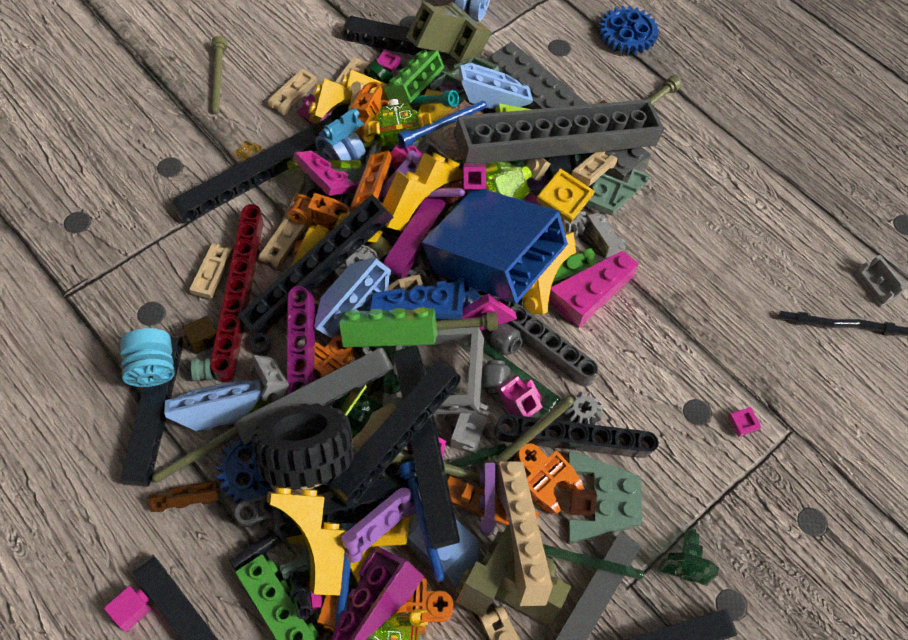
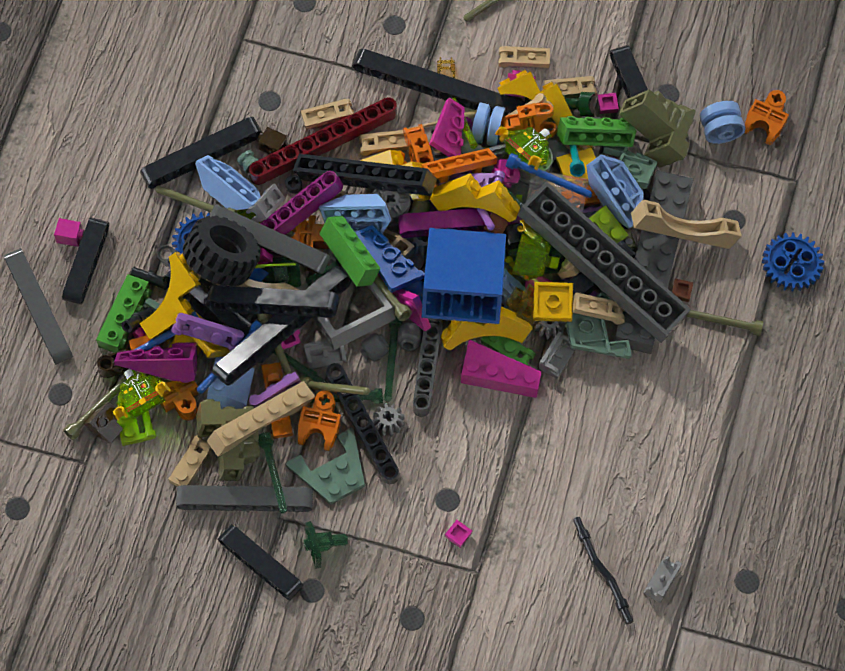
camera: 60 degrees right, 5 degrees up
(146, 357) = (224, 122): medium azure wheel -> none
(184, 496) = (157, 213): reddish brown hinge -> none
(341, 128) = (492, 113): dark azure hinge -> none
(474, 176) = (510, 226): dark pink brick -> none
(520, 397) = (368, 372): dark pink brick -> none
(545, 73) = (716, 232): none -> tan arch
(583, 502) = (318, 455): copper plate -> none

